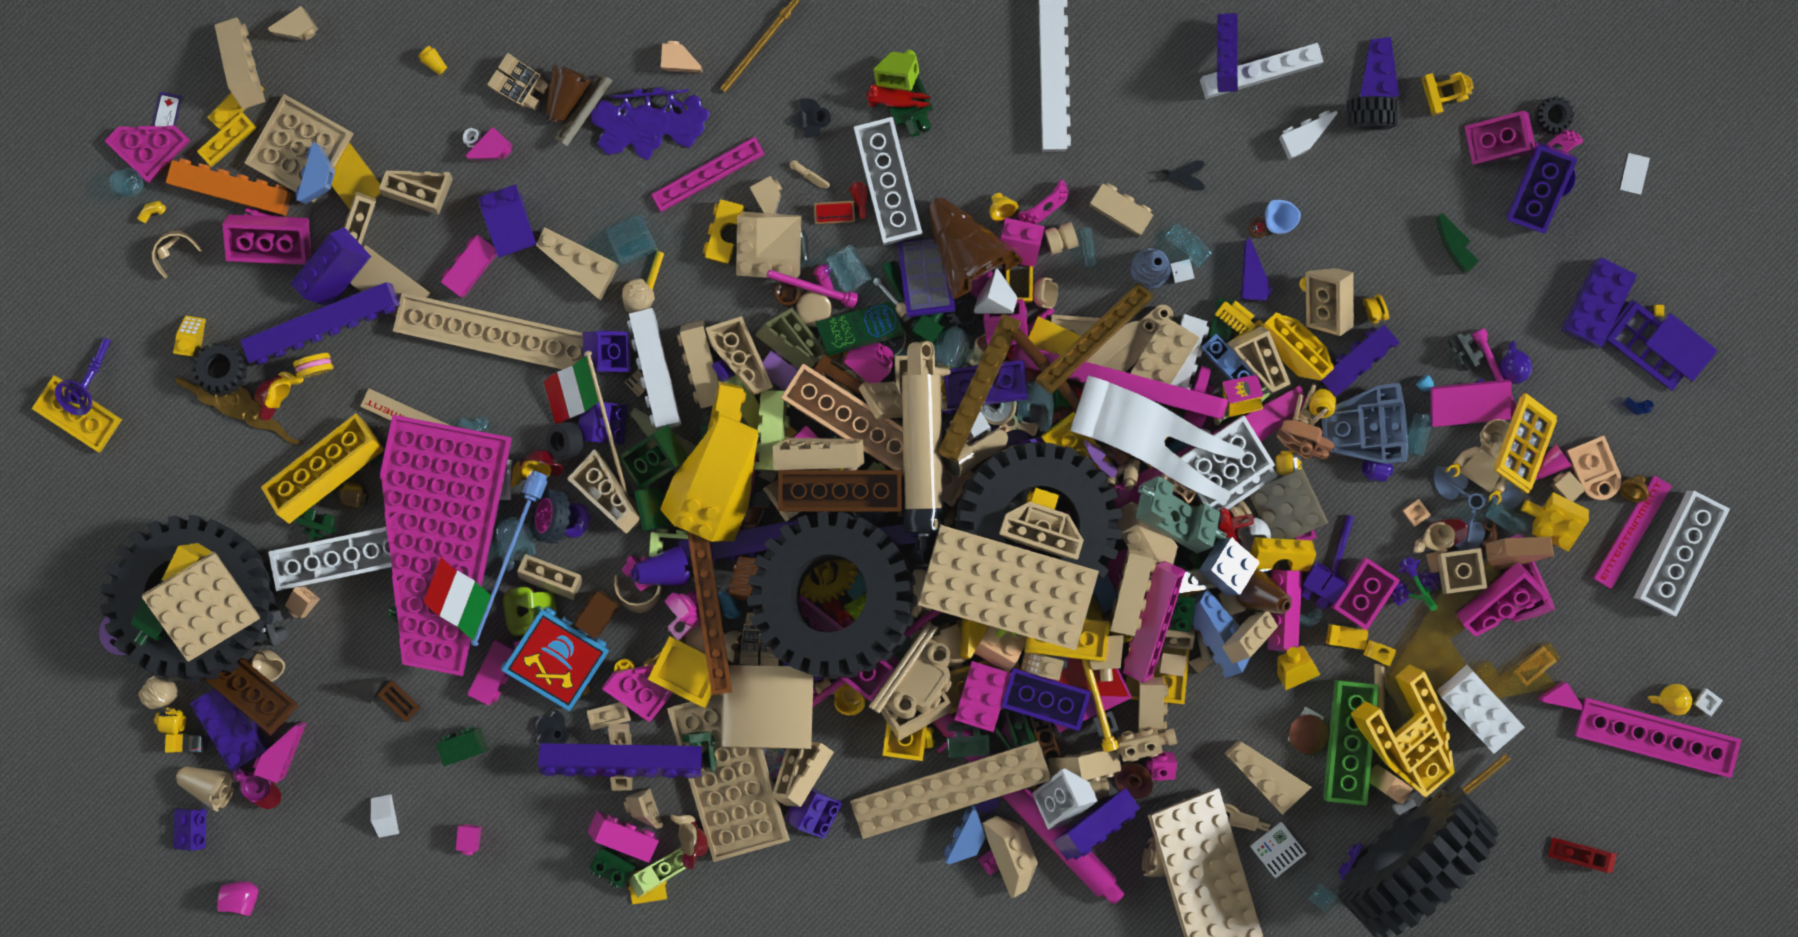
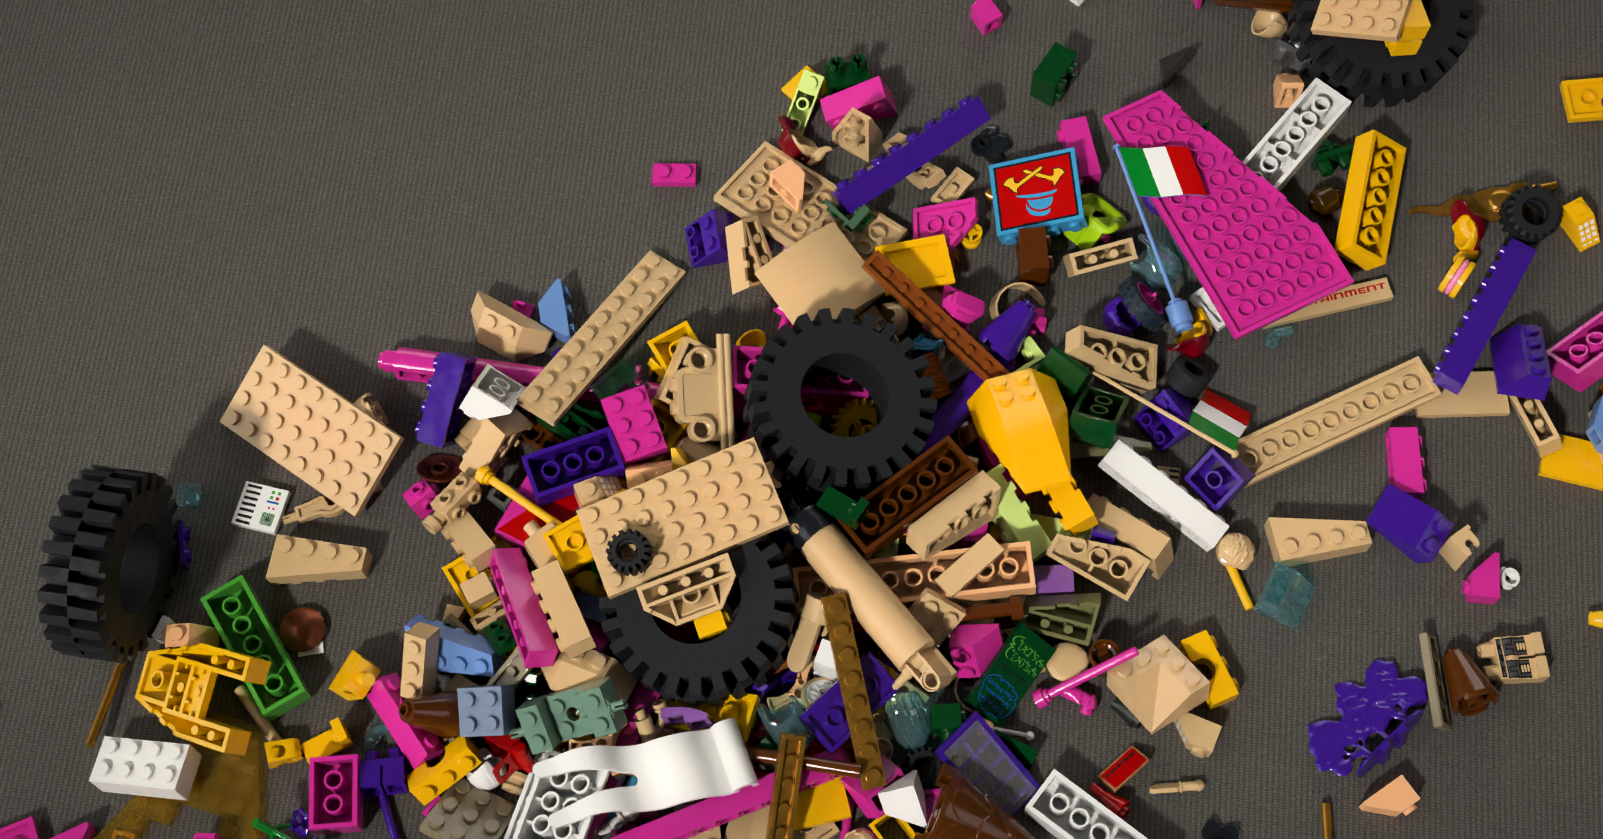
camera: 145 degrees right, 20 degrees down
(406, 718) = (1137, 81): reddish brown tile -> none
(417, 189) = (1511, 492): tan wedge -> none
(489, 181) = (1455, 550): none -> tan hinge
(707, 174) = (1269, 714): dark pink tile -> none
(725, 807) = (789, 183): none -> light nougat slope
(799, 888) = (674, 175): none -> dark pink plate
(835, 411) = (969, 565): none -> tan tile
(848, 269) = (1066, 724): clear light blue bracket -> none
(892, 513) = (843, 507): none -> dark green bracket
(1051, 587) = (617, 545): none -> black tyre

